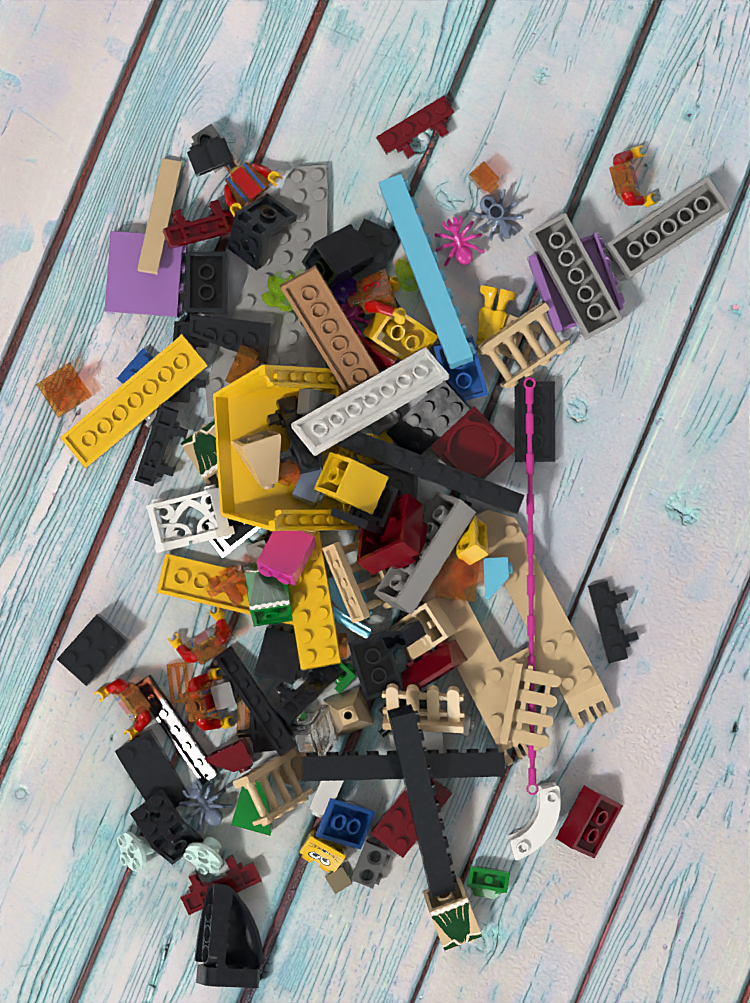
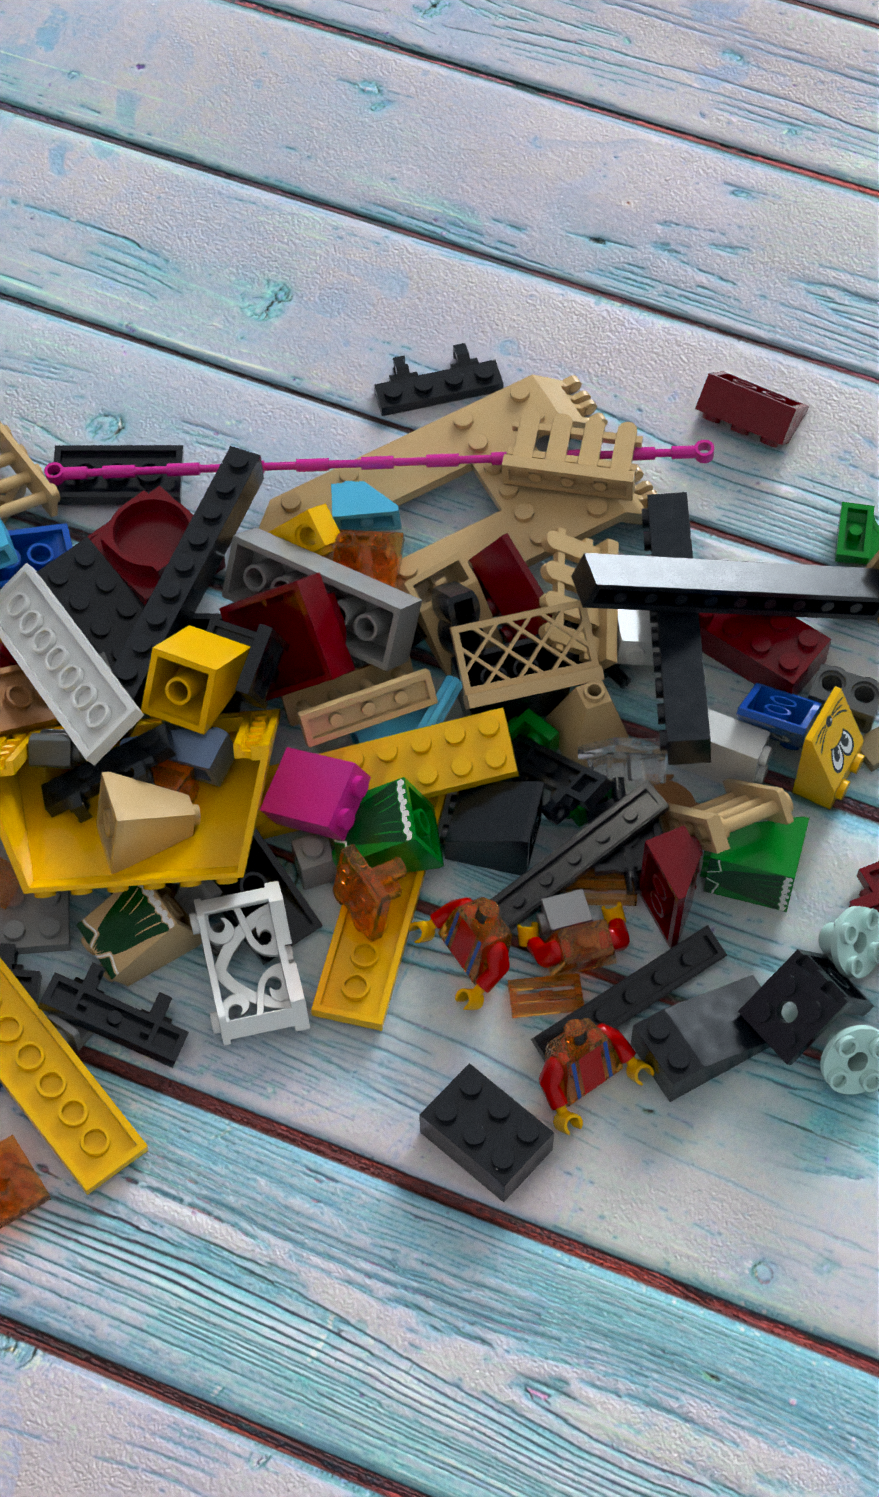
camera: 90 degrees left, 30 degrees down
(206, 806) = (764, 948): sand blue animal -> none
(360, 679) = (529, 684): none -> tan fence
(540, 825) = (780, 481): white fence -> none

